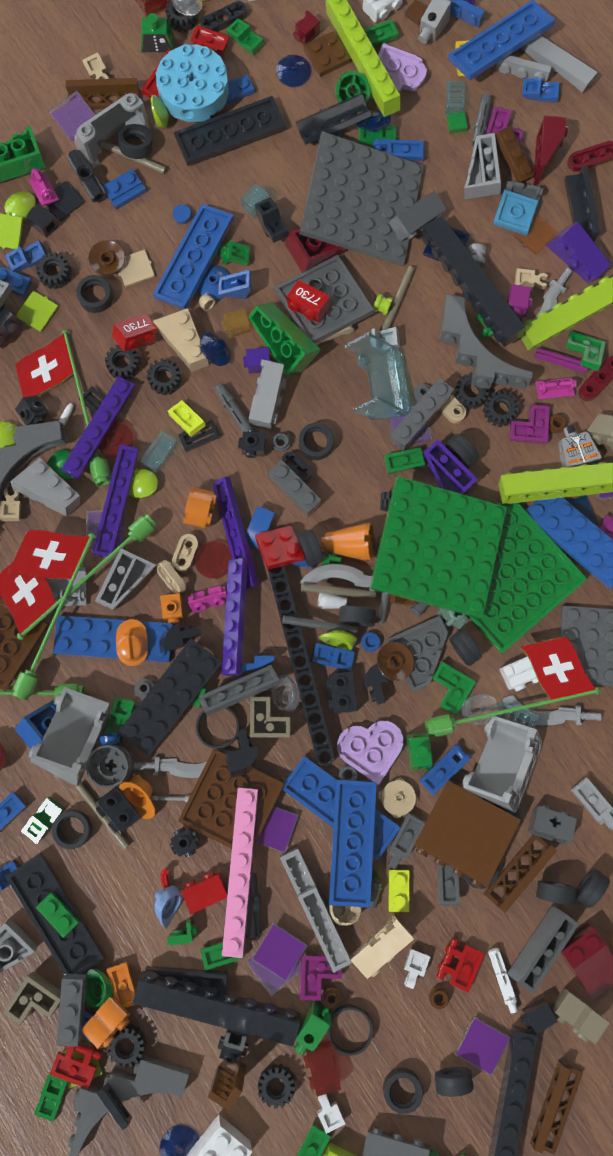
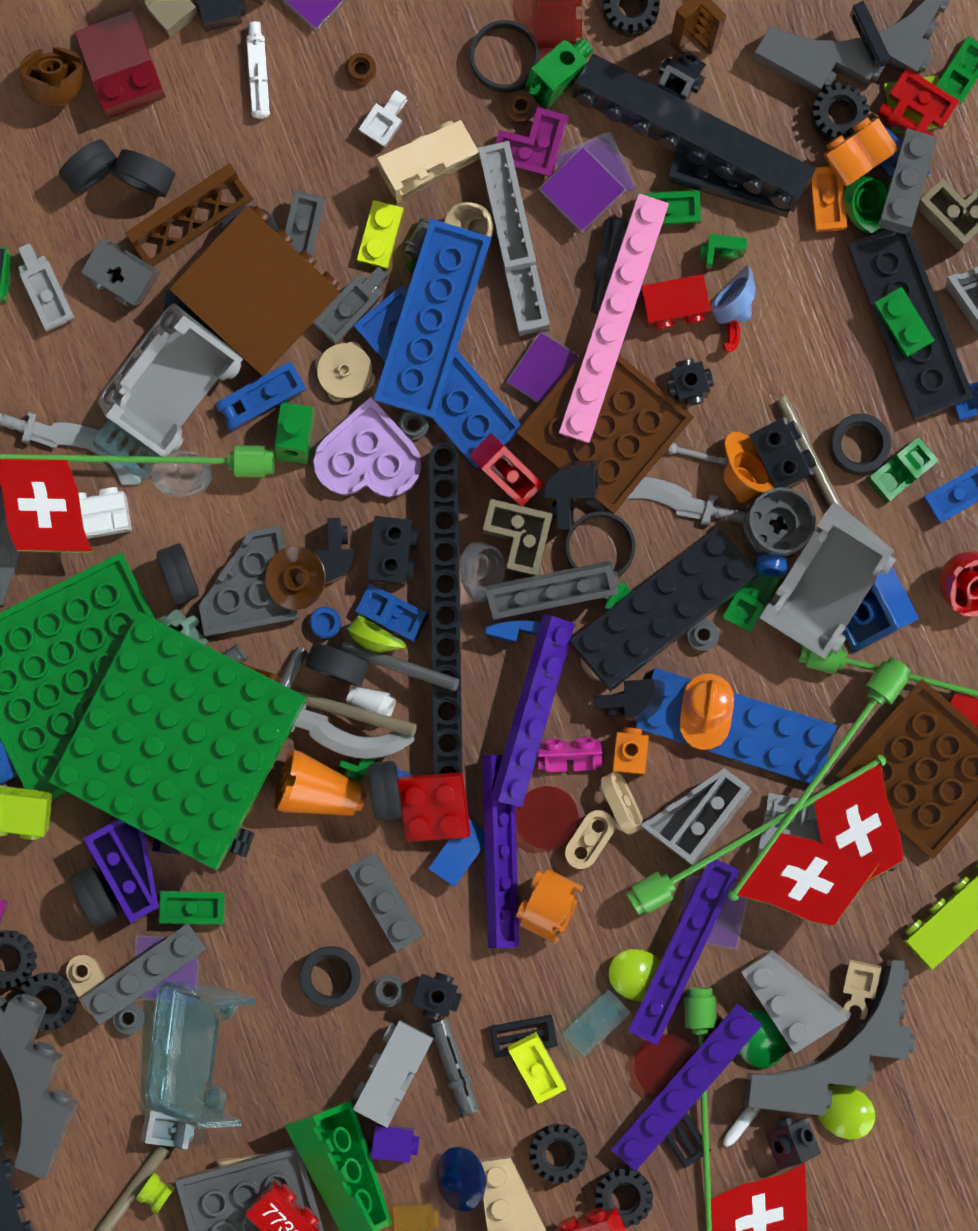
camera: 165 degrees left, 5 degrees up
(284, 758) = (506, 469): none -> red brick
(299, 464) = (366, 945): black beam -> none
(458, 687) = (205, 516): green plate -> none
(465, 968) = (308, 101): red plate -> none
(543, 949) = (187, 98): dark grey brick -> none

